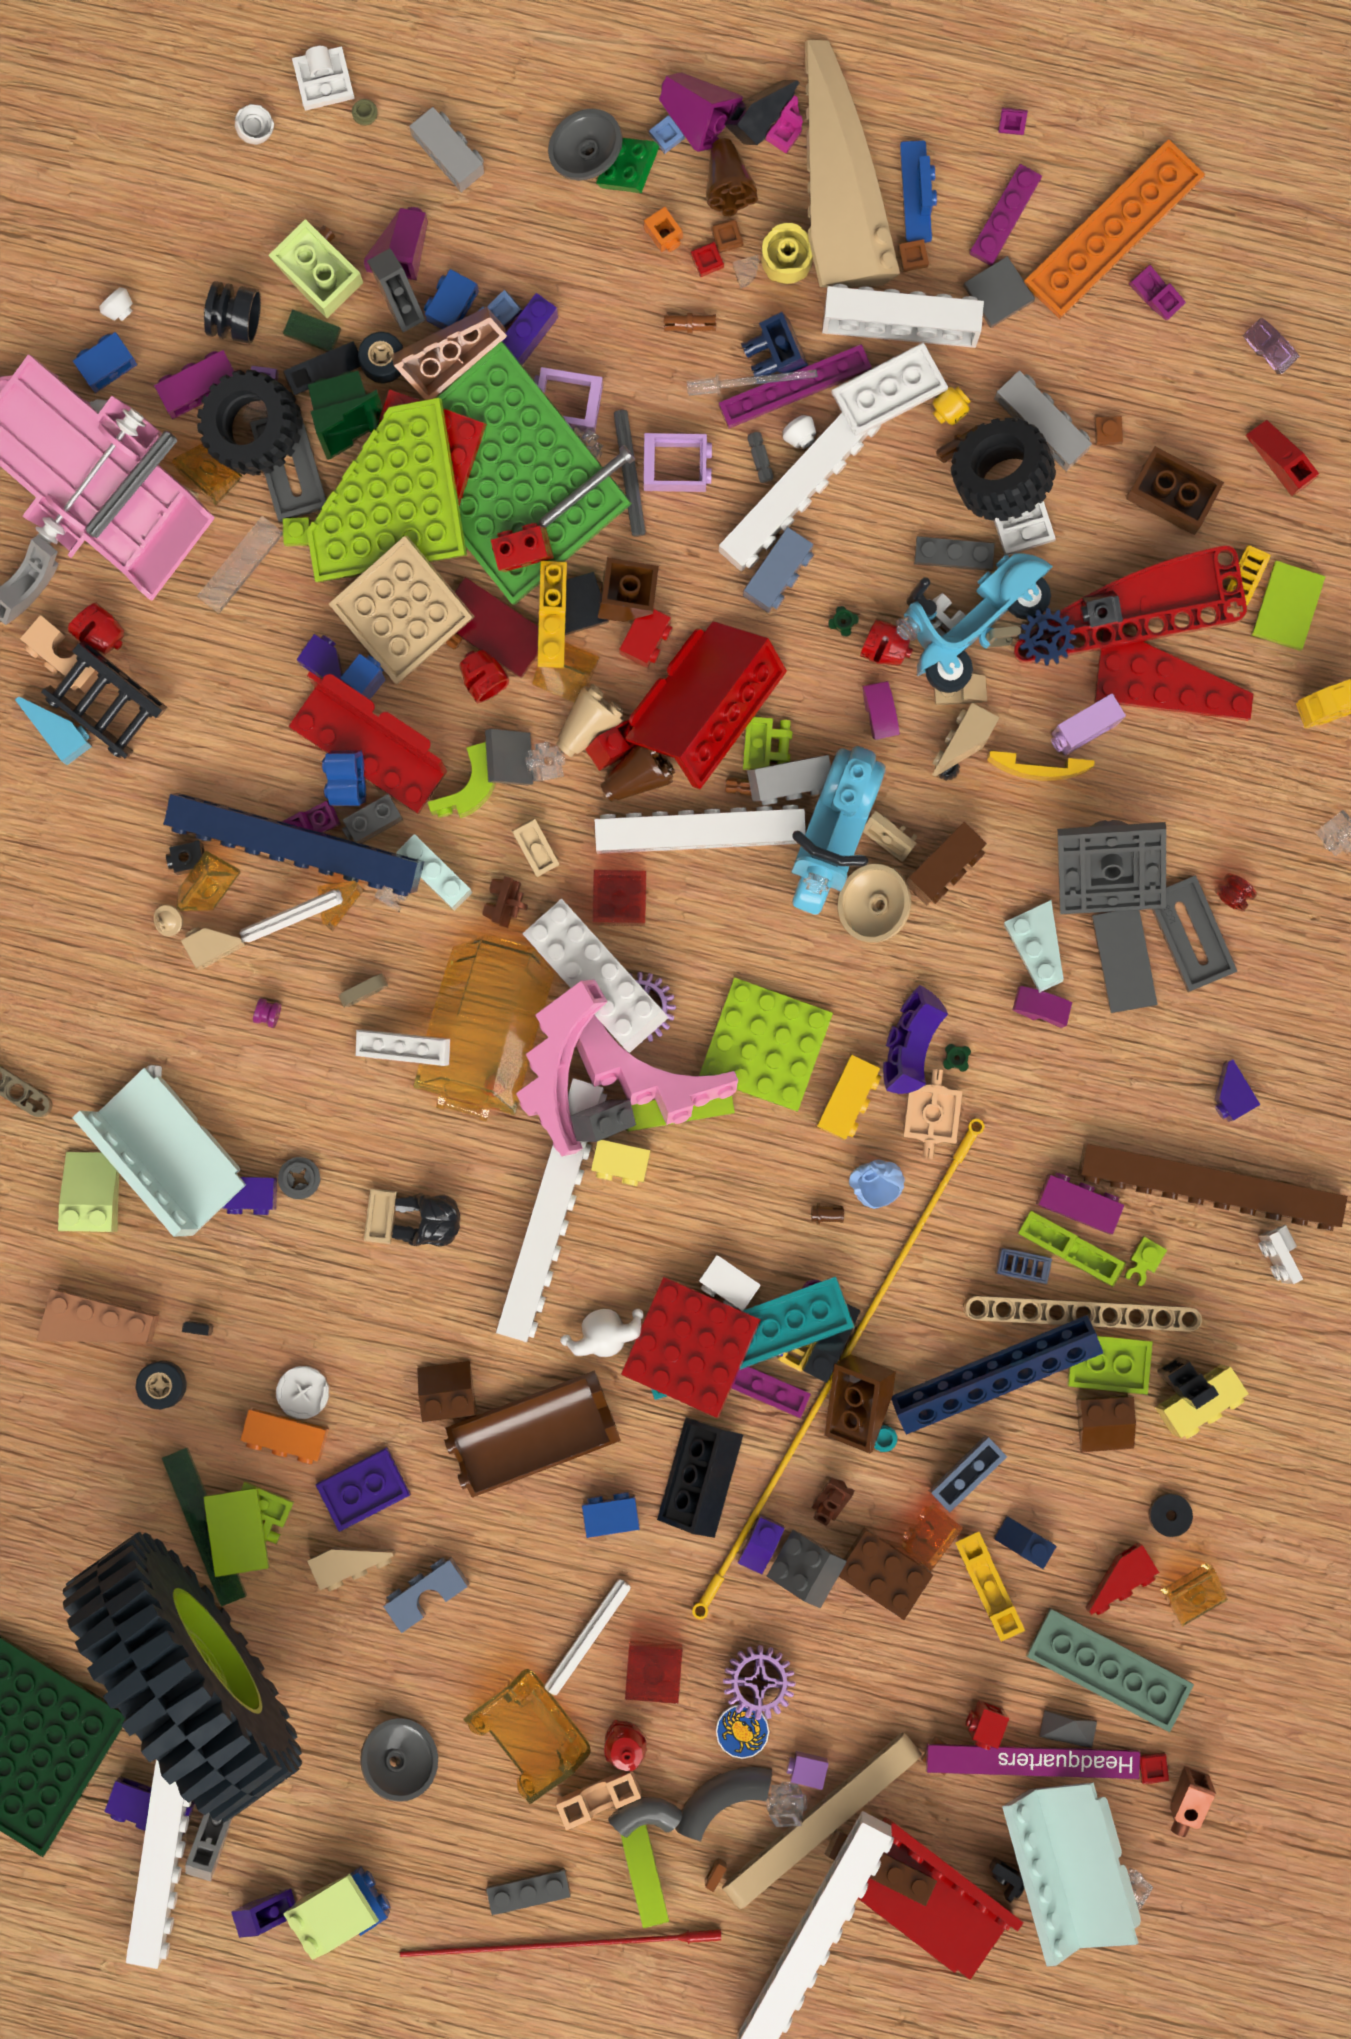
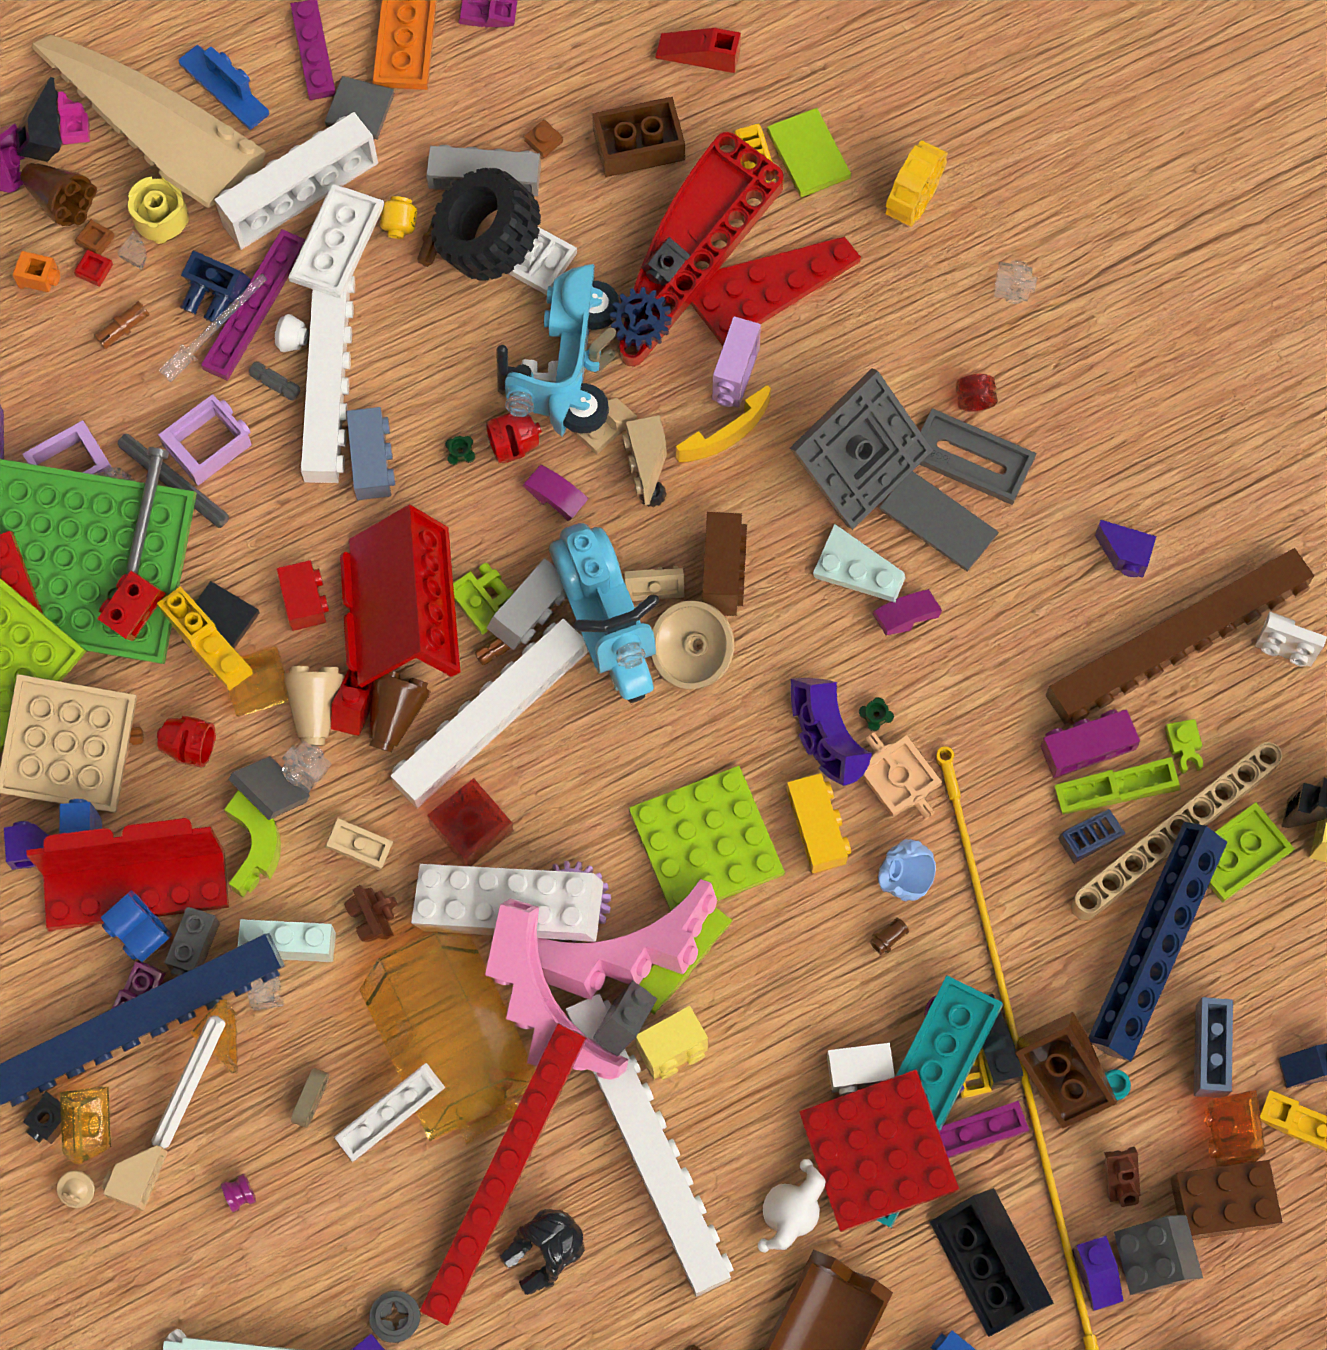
camera: 40 degrees left, 15 degrees down
(380, 1216) = (500, 1286): tan tile -> none
(441, 1151) = (503, 1174): none -> red plate
(498, 629) = (169, 693): dark red tile -> none
(627, 590) = (253, 568): reddish brown slope -> none
(913, 255) = (264, 133): dark orange plate -> none
(954, 553) = (504, 326): dark grey plate -> none
(1106, 1423) = (1284, 903): reddish brown slope -> none

